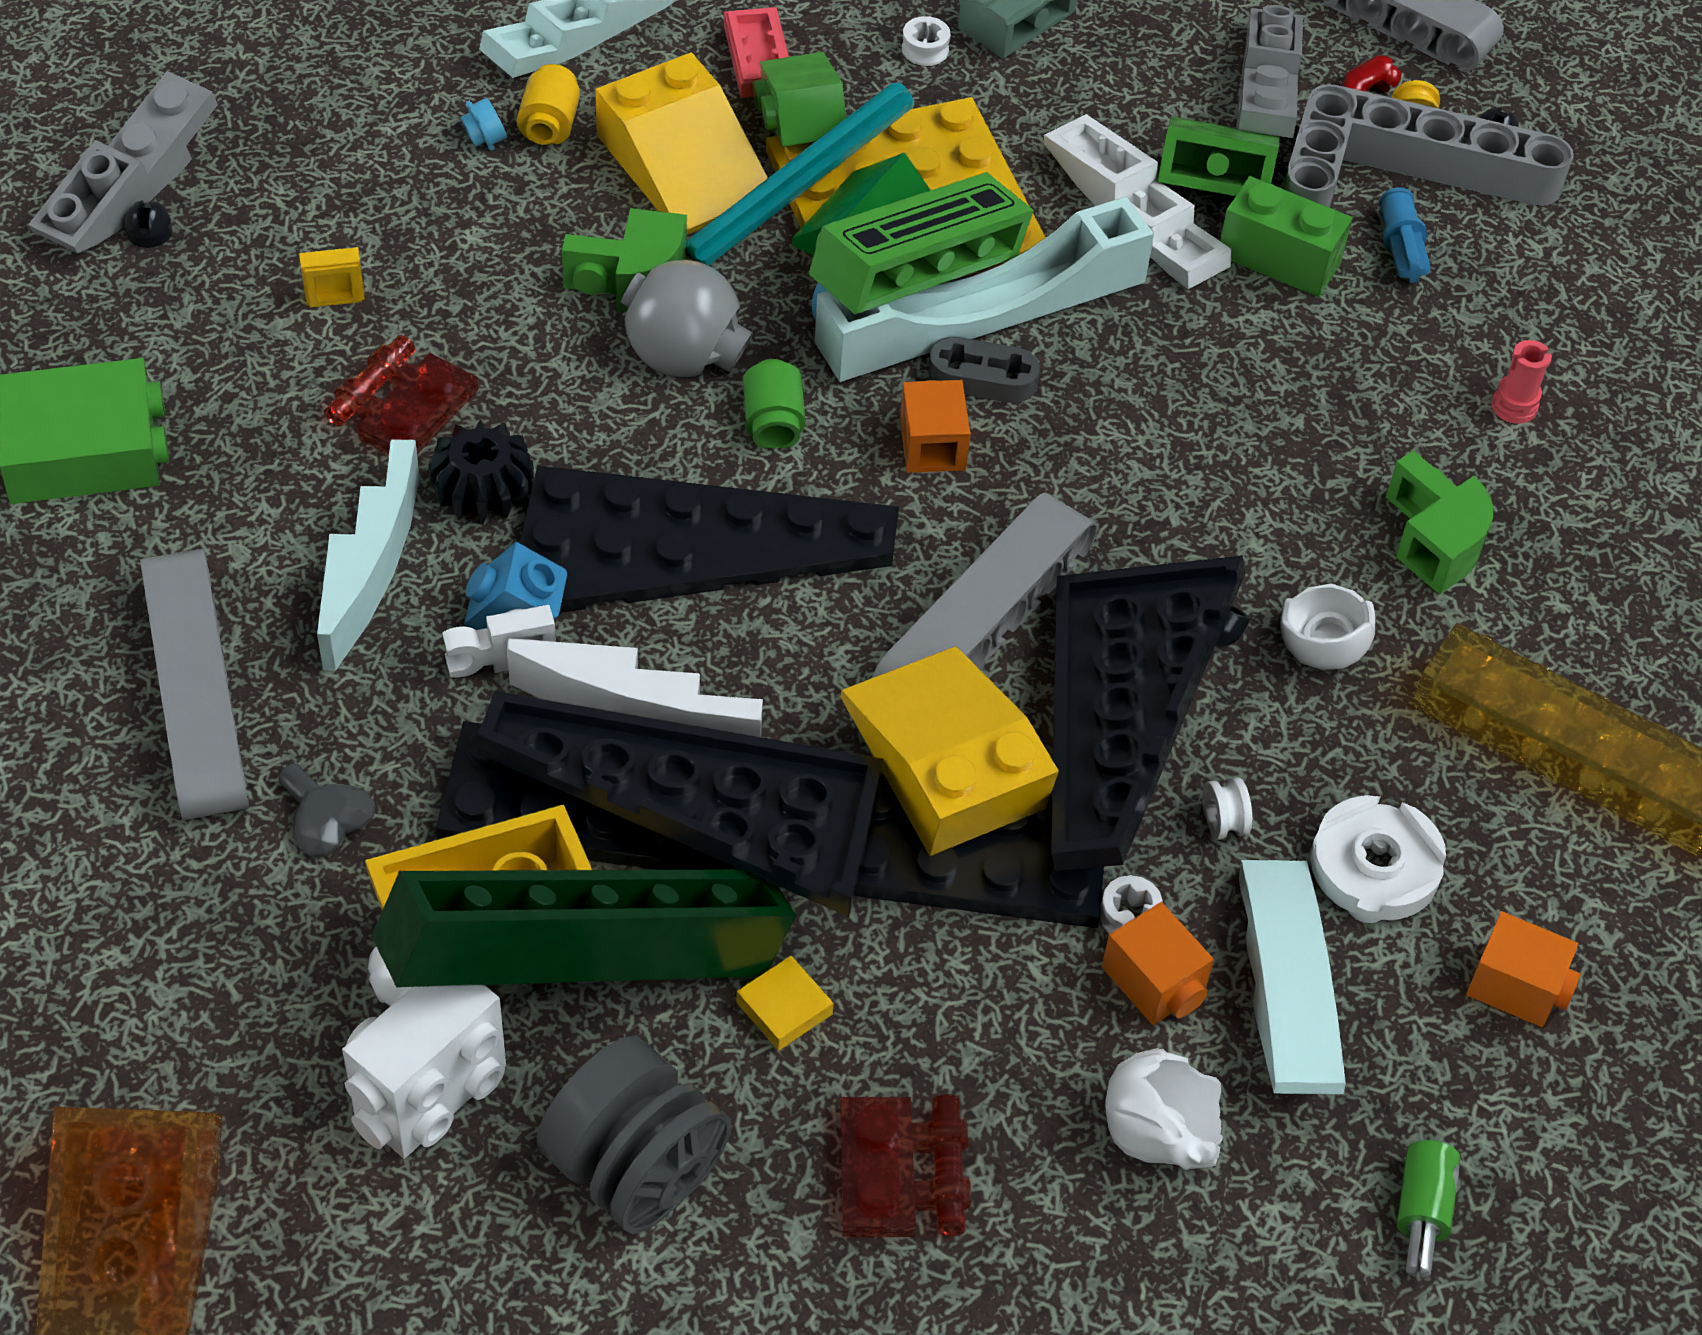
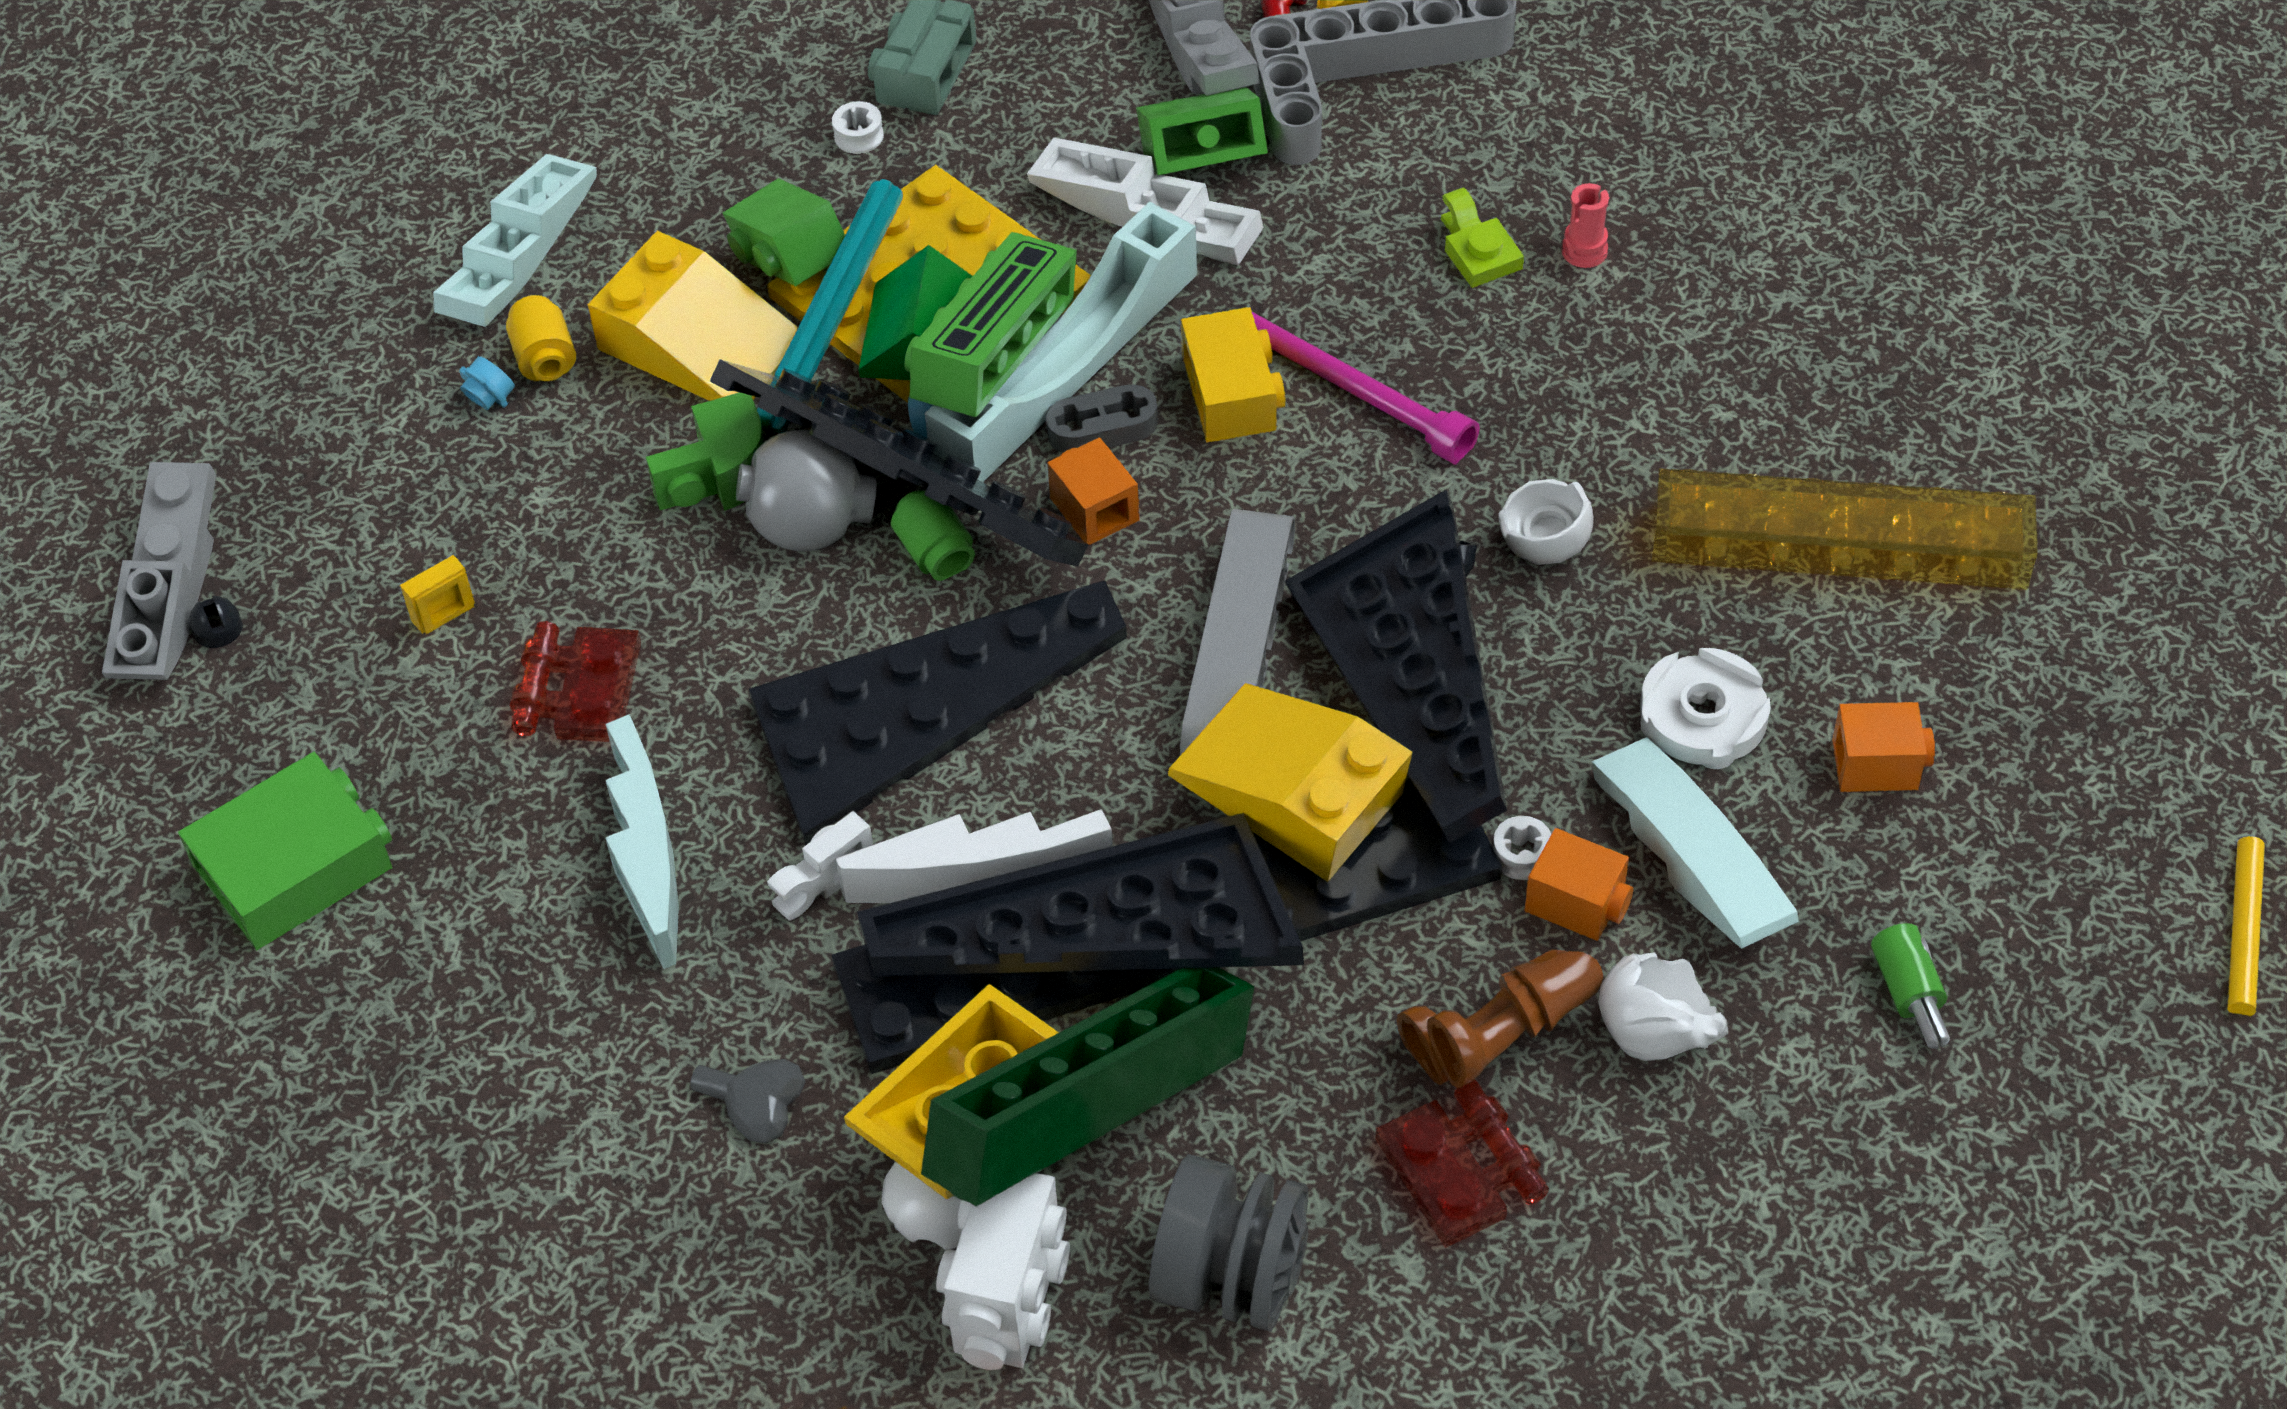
camera: 20 degrees left, 0 degrees up
(193, 685) = (558, 1031): light grey beam -> none
(481, 470) = (701, 716): black gear -> none
(512, 582) = (798, 809): dark azure bracket -> none
(752, 38) = (699, 199): coral plate -> none
(765, 306) = (870, 439): none -> black wing
(784, 1003) = (1274, 1070): yellow tile -> none
(1048, 1046) = (1528, 999): none -> dark orange piece
(1117, 377) = (1231, 374): none -> yellow brick
(1227, 808) = (1554, 721): white bush -> none
(1285, 235) = (1302, 178): bright green brick -> none
(1285, 511) = (1448, 433): none -> dark pink piece
(1404, 234) = (1403, 132): dark azure axle -> none
(1414, 363) = (1477, 248): none -> lime plate
(1444, 524) = (1594, 379): bright green brick -> none

